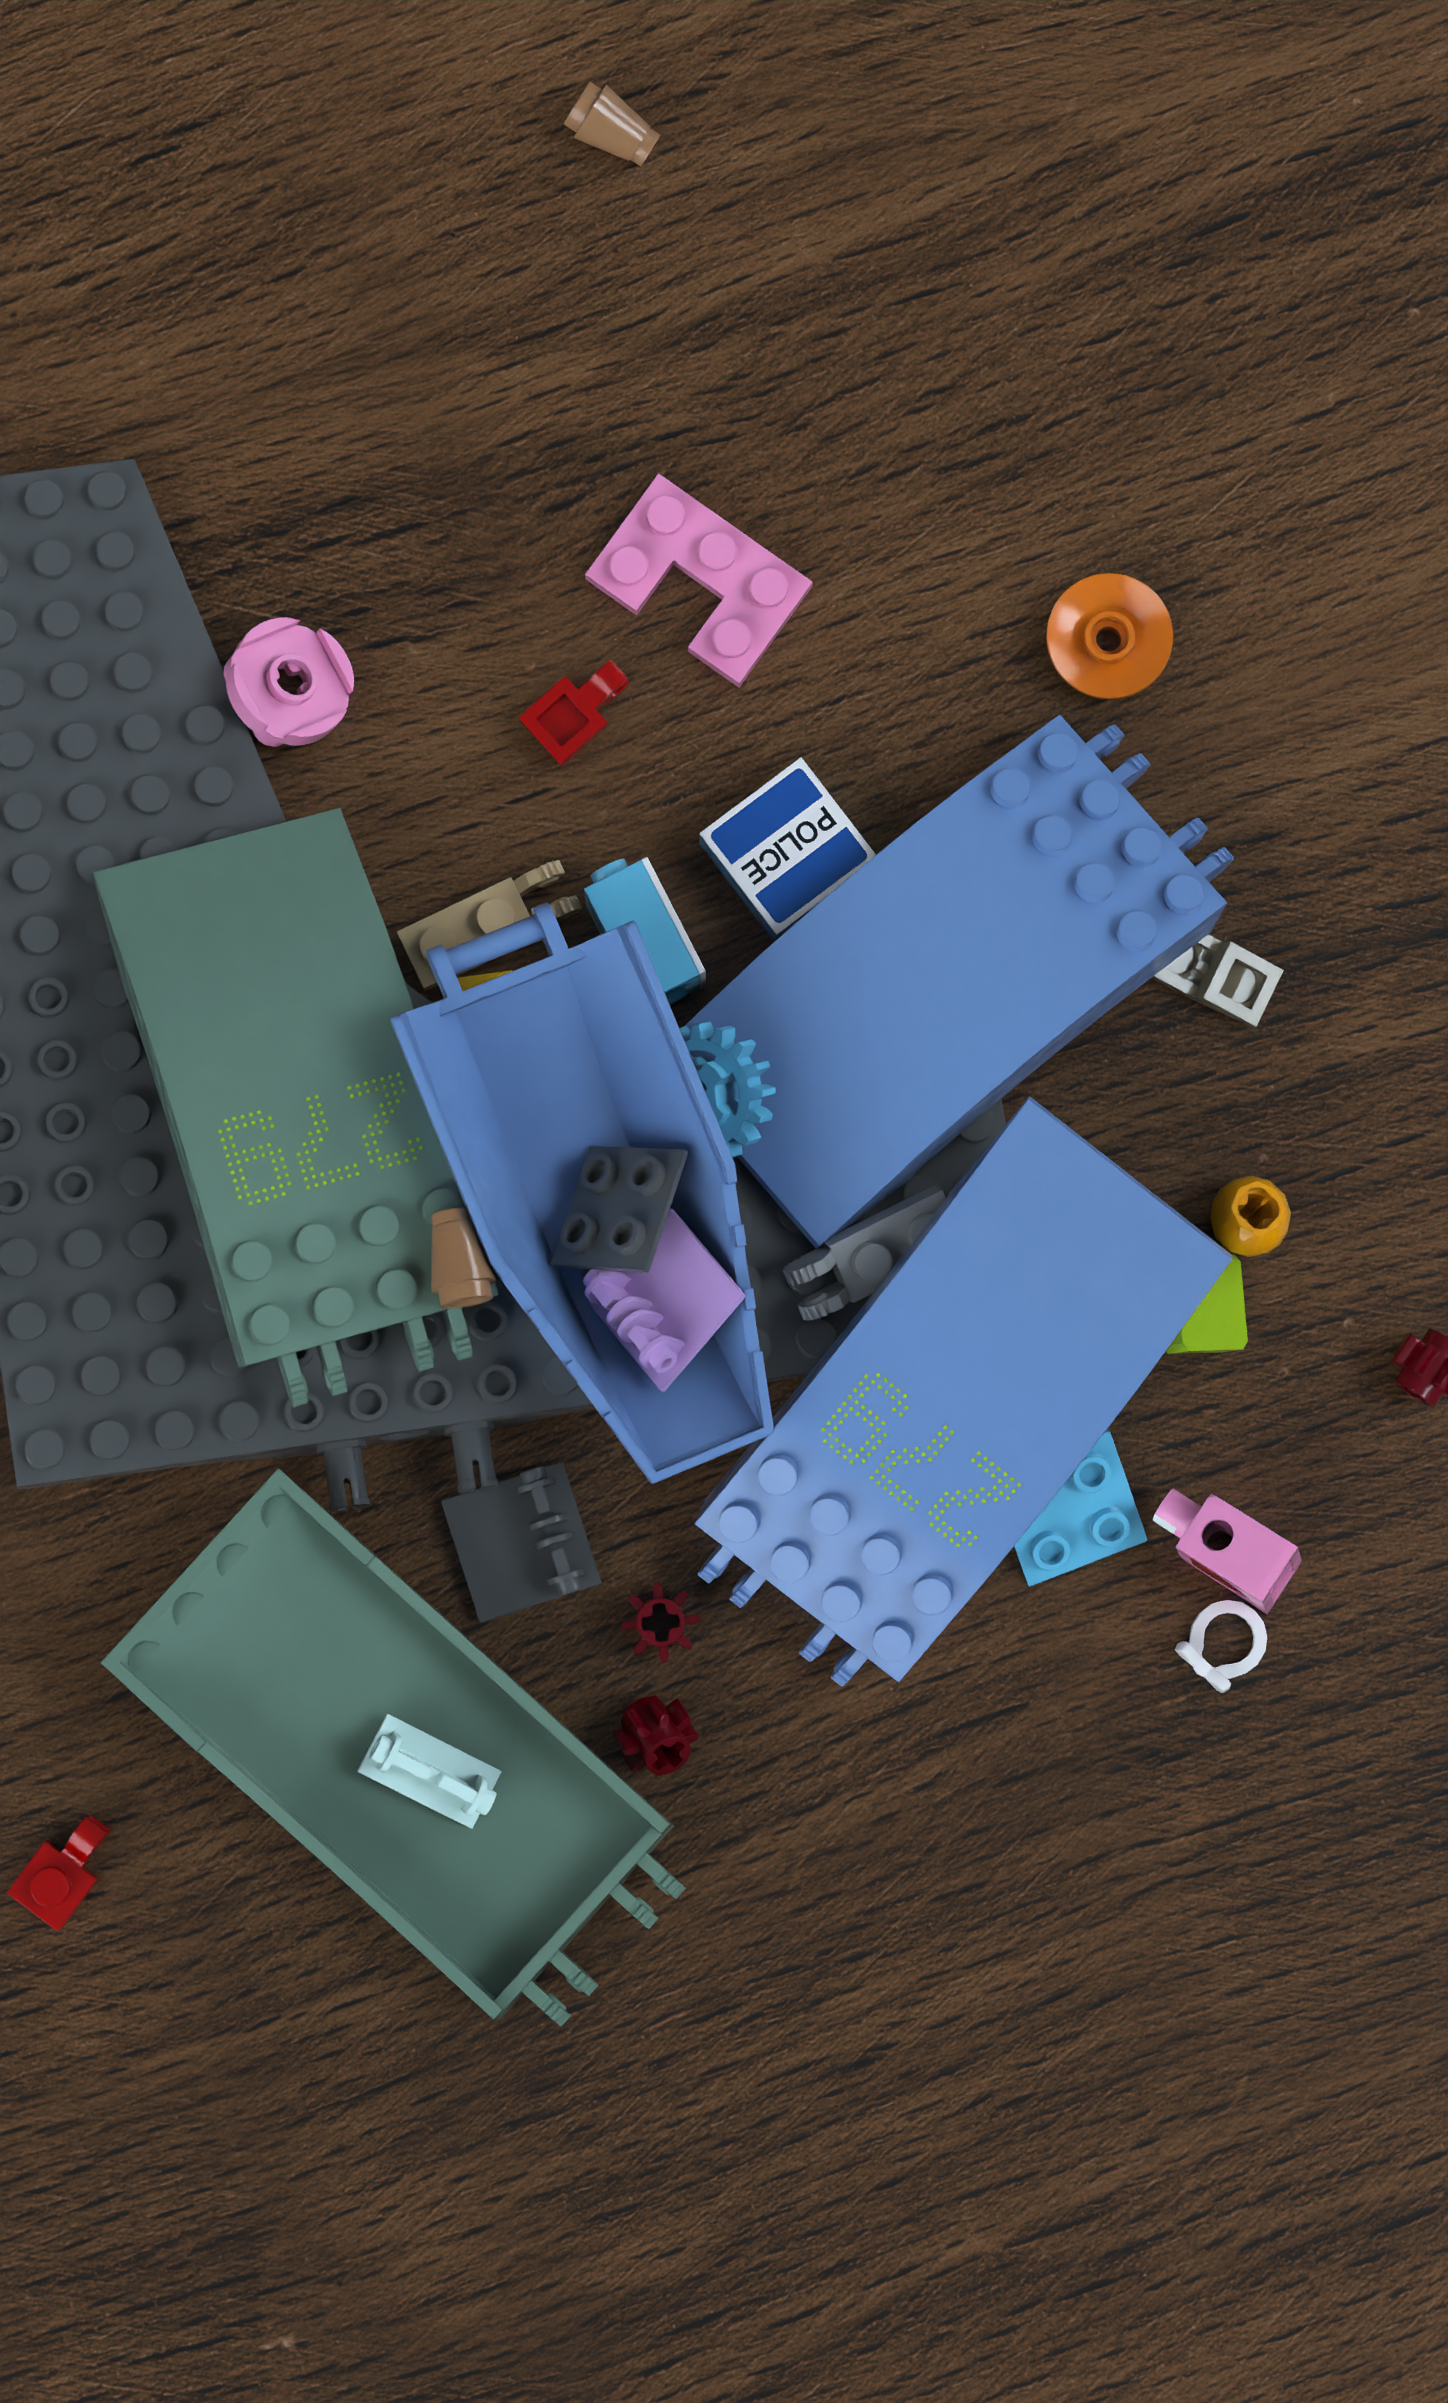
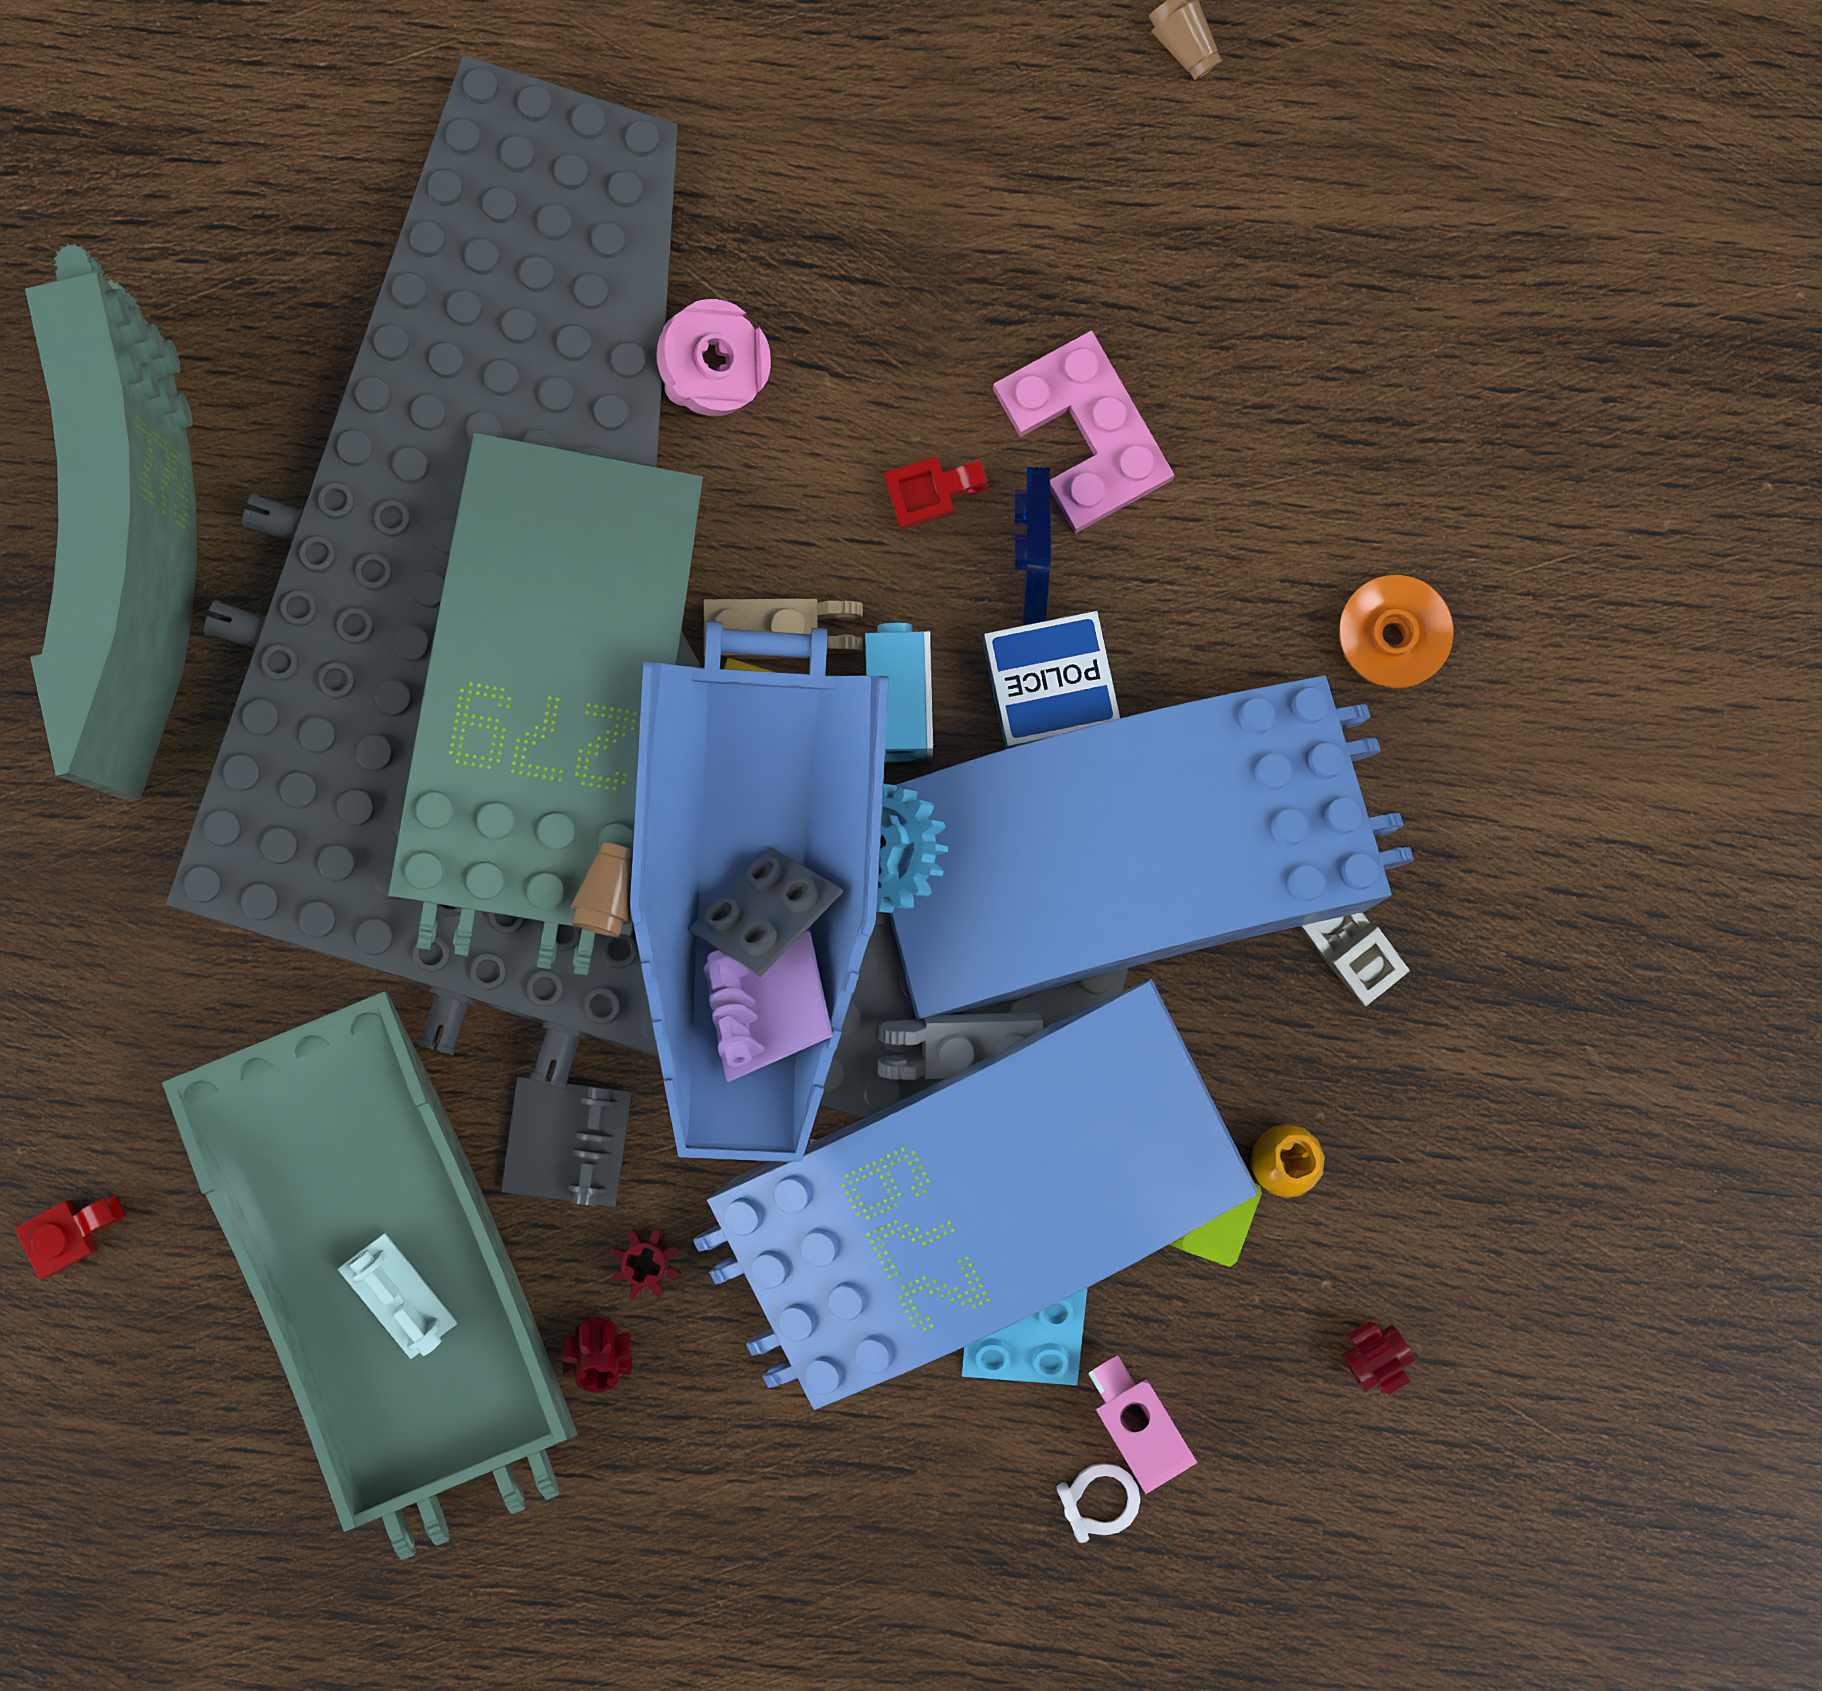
camera: 30 degrees right, 0 degrees up
(707, 721) = (1033, 548): none -> clear blue wing

